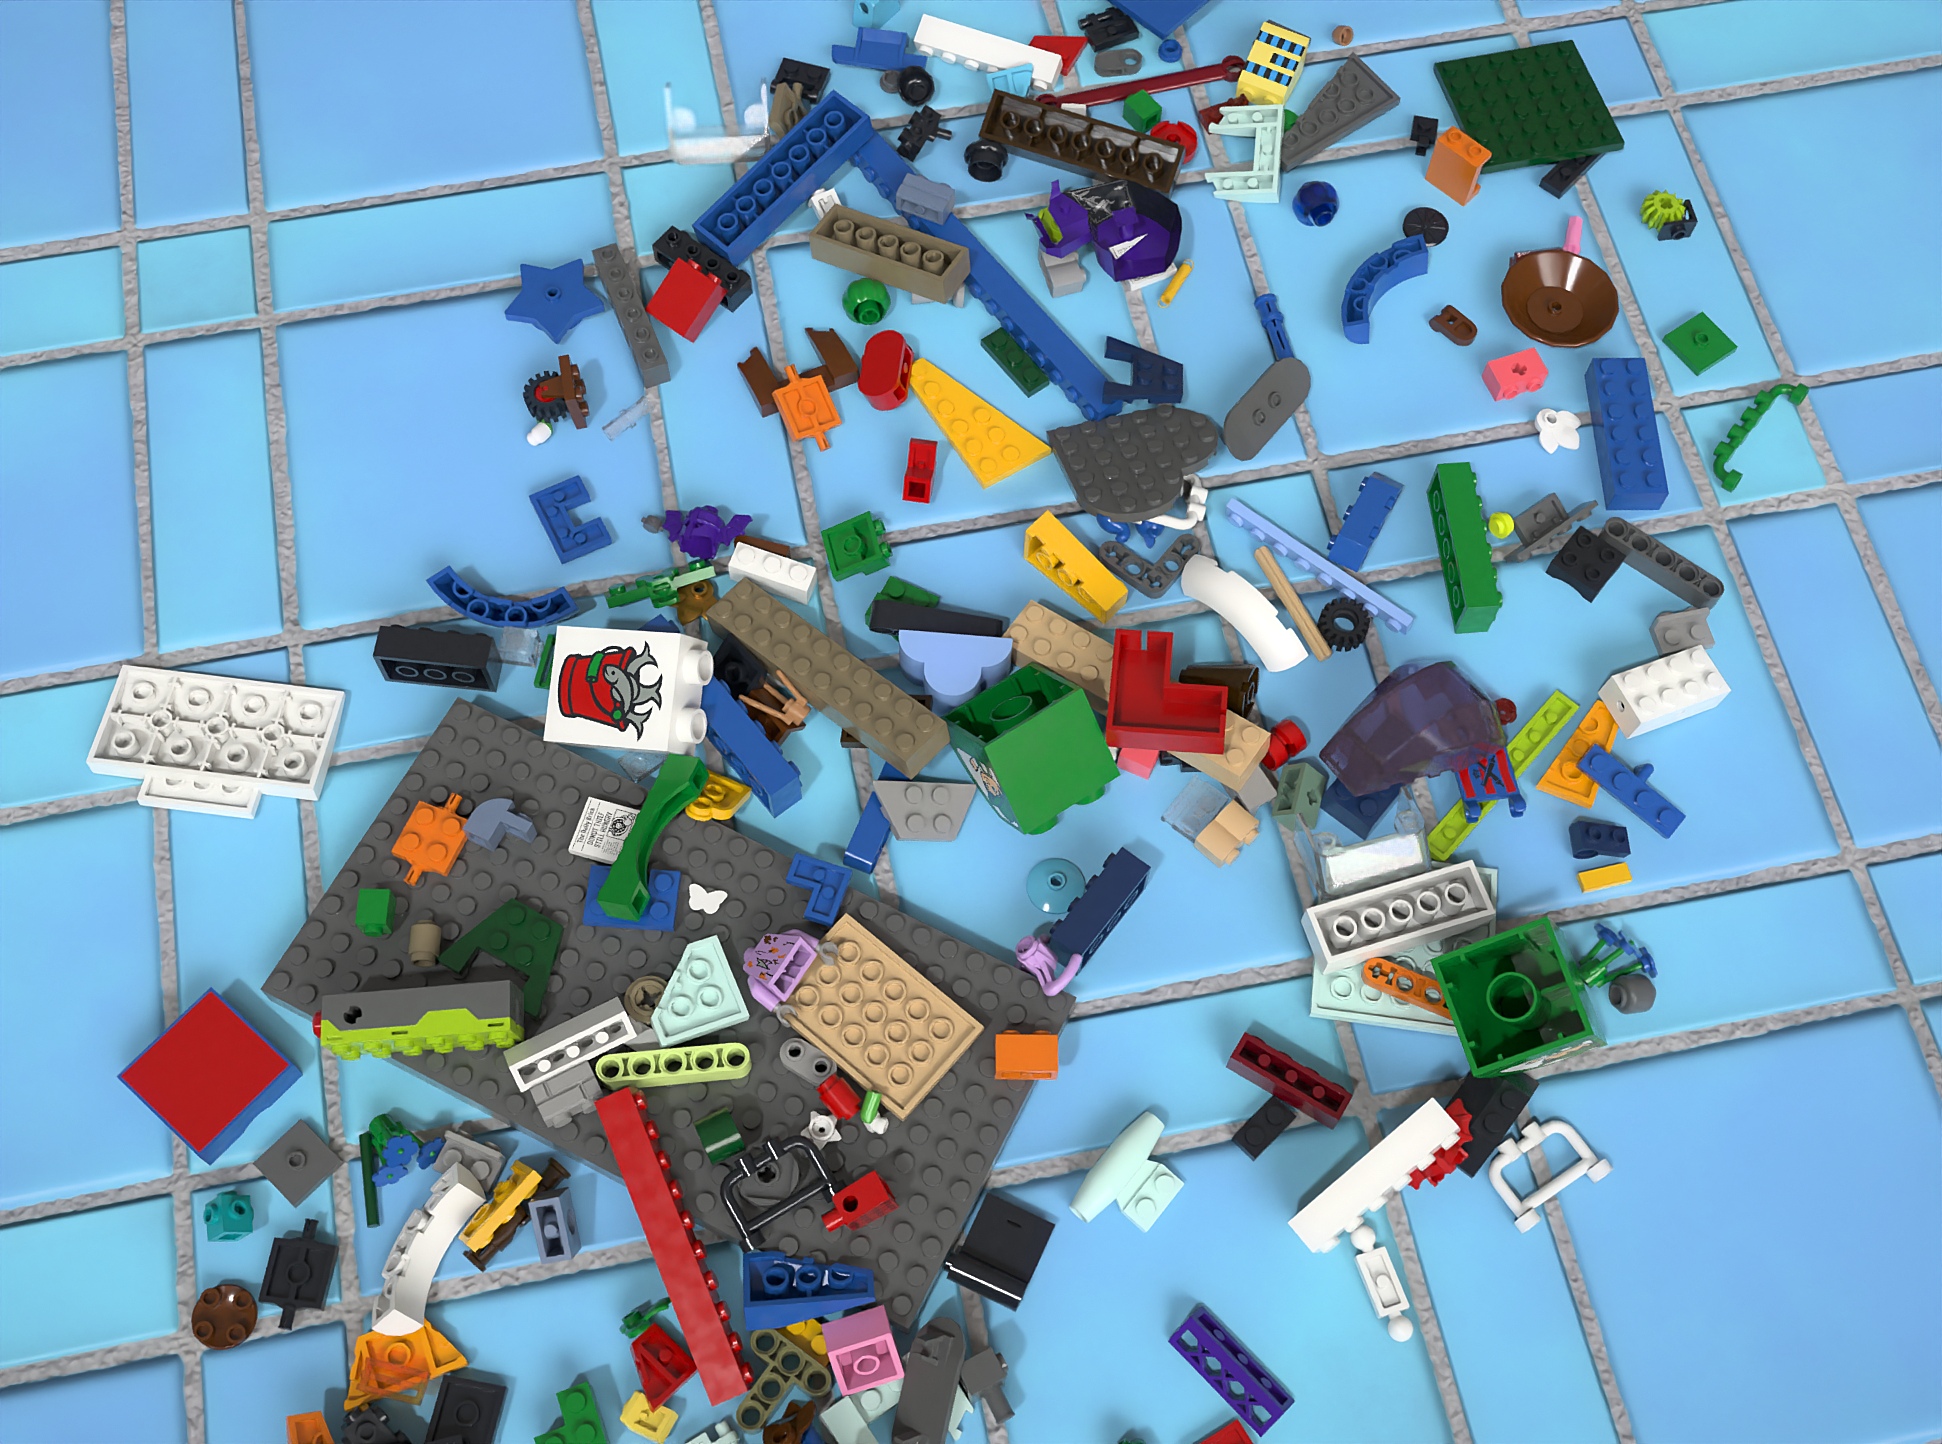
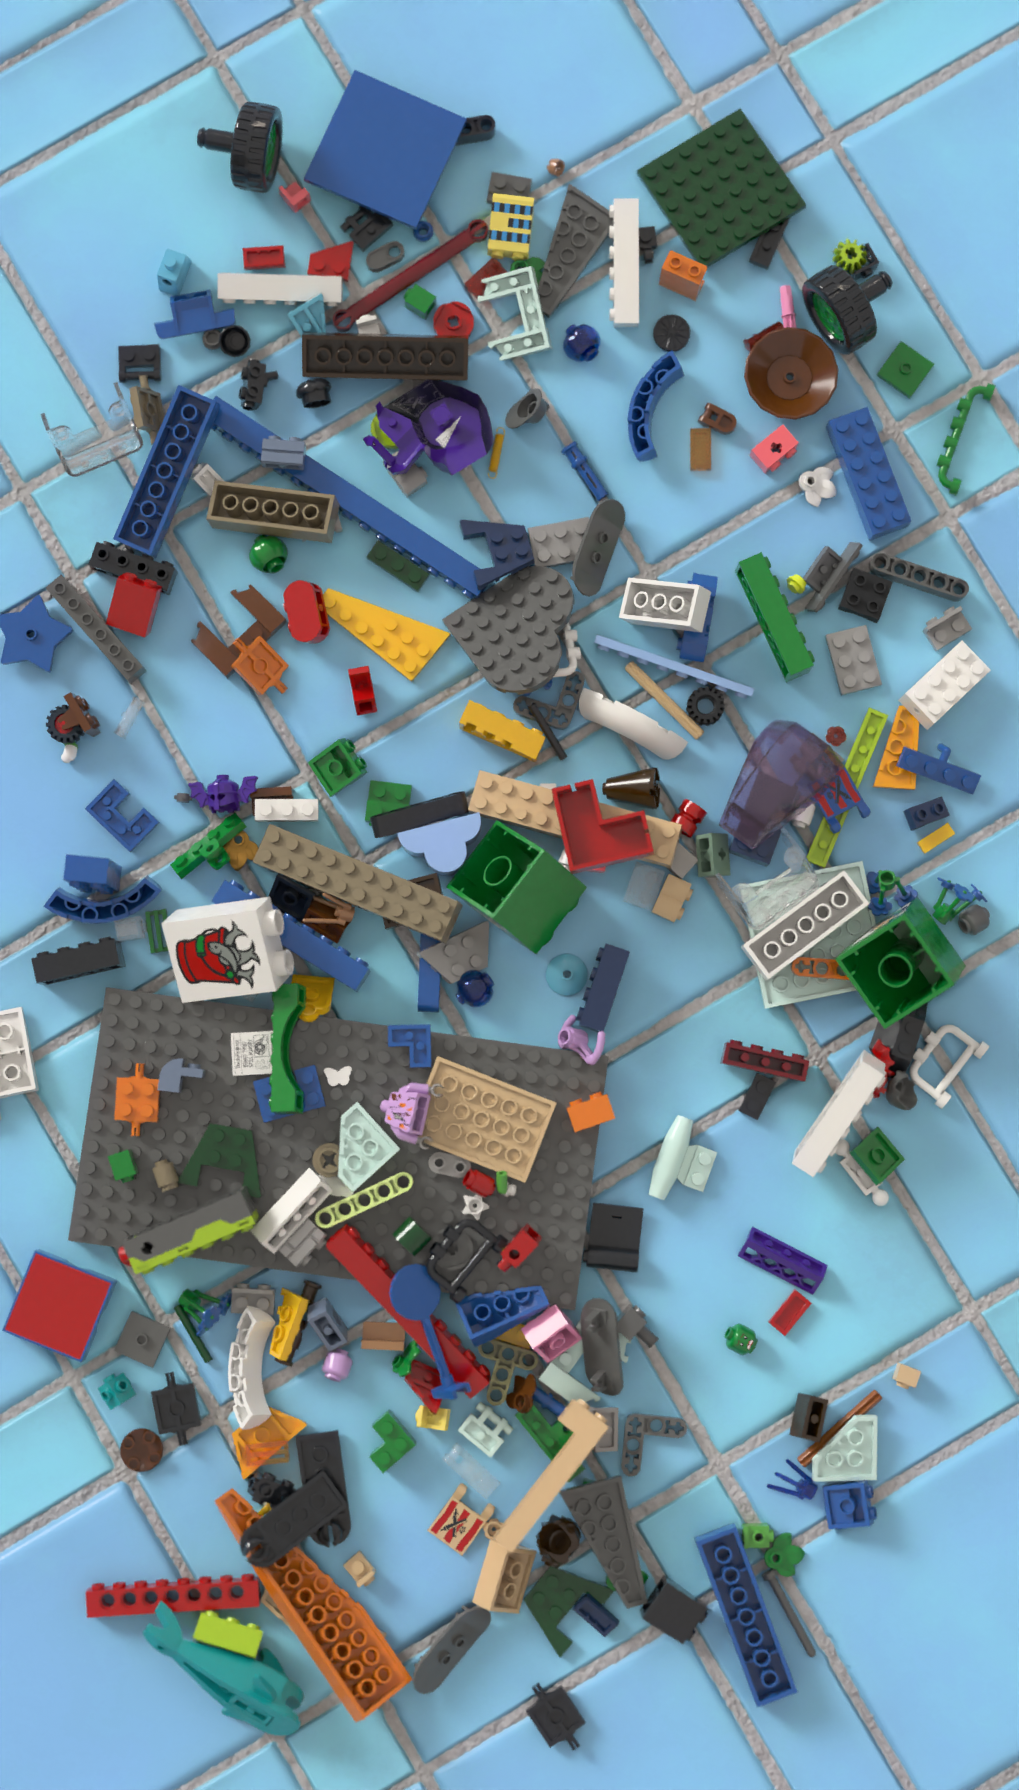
camera: 20 degrees left, 20 degrees up
(501, 553) = (92, 873): none -> blue brick
(545, 1292) = (337, 1365): none -> lavender head
(626, 1276) = (383, 1336): none -> medium nougat panel
(690, 1222) = (416, 1298): none -> blue piece
(928, 859) = (475, 988): none -> clear blue plant
(983, 22) = (264, 257): none -> red plate
(1132, 588) = (547, 731): none -> black bar
(1213, 392) = (557, 542): none -> light grey plate
(1232, 250) = (528, 409): none -> dark grey piece
(1329, 485) = (665, 604): none -> white brick
(1393, 140) = (625, 262): none -> white brick
(1412, 1264) = (877, 1156): none -> green plate
(1423, 351) = (700, 449): none -> clear orange tile
(1433, 790) = (805, 817): none -> white brick
(1470, 1186) = (901, 1091): none -> dark grey hair
(1524, 896) = (885, 881): none -> blue plant
(1550, 633) = (853, 660): none -> light grey plate
(1644, 243) = (843, 307): none -> black wheel

